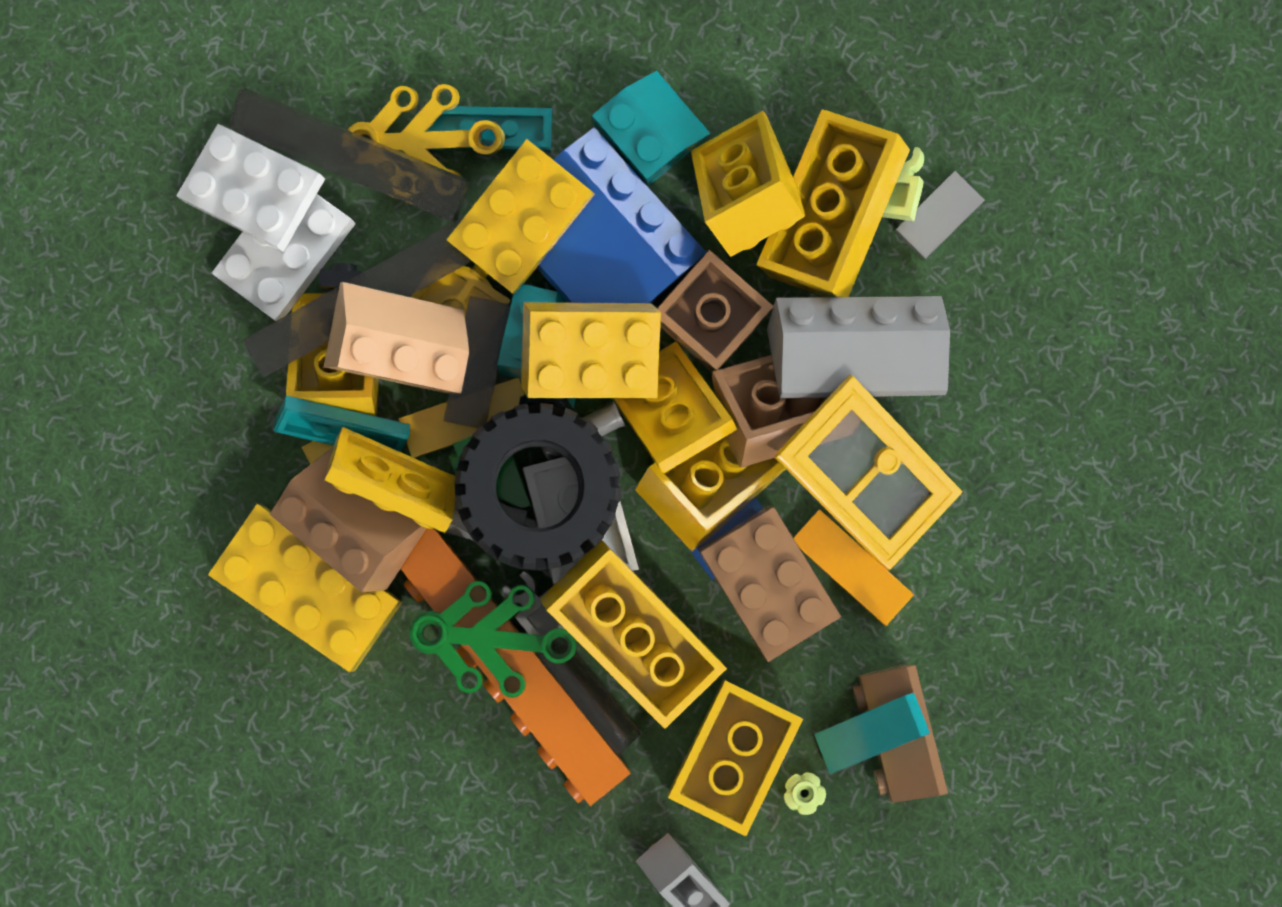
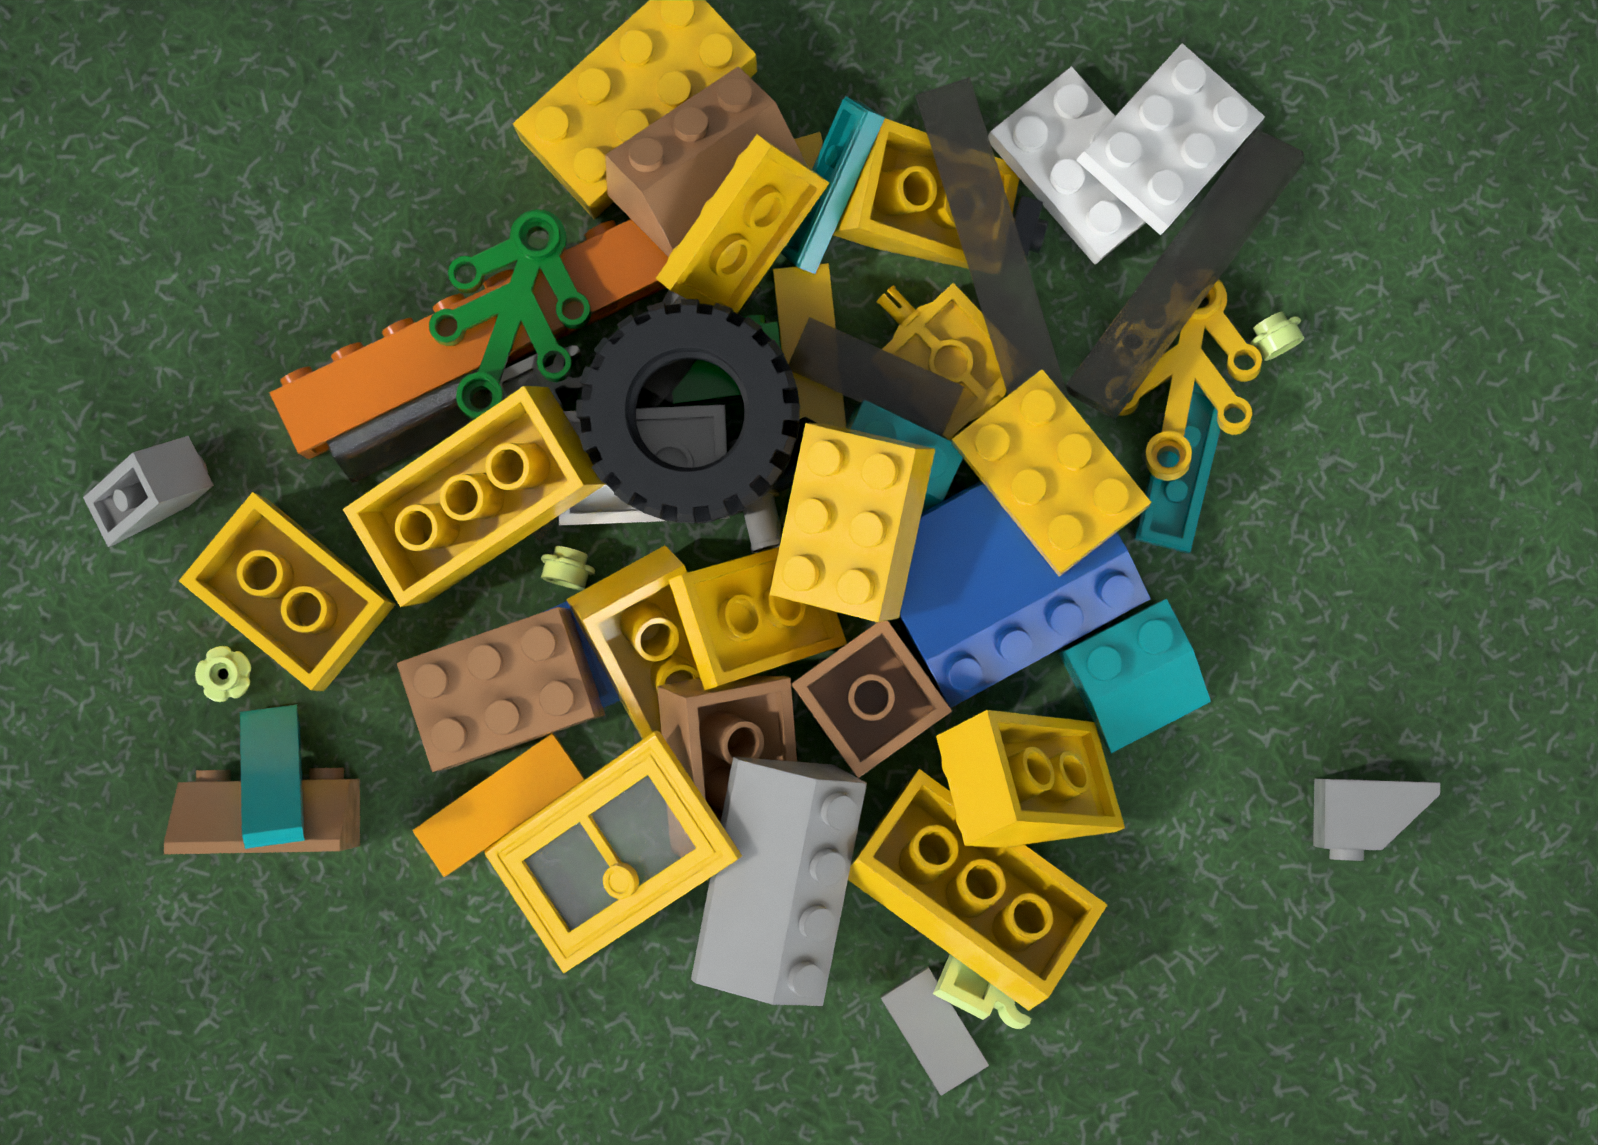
camera: 105 degrees right, 0 degrees up
(378, 80) = (1277, 335): none -> yellowish green plate
(398, 339) = (925, 277): light nougat slope -> none
(667, 558) = (566, 568): none -> yellowish green plate

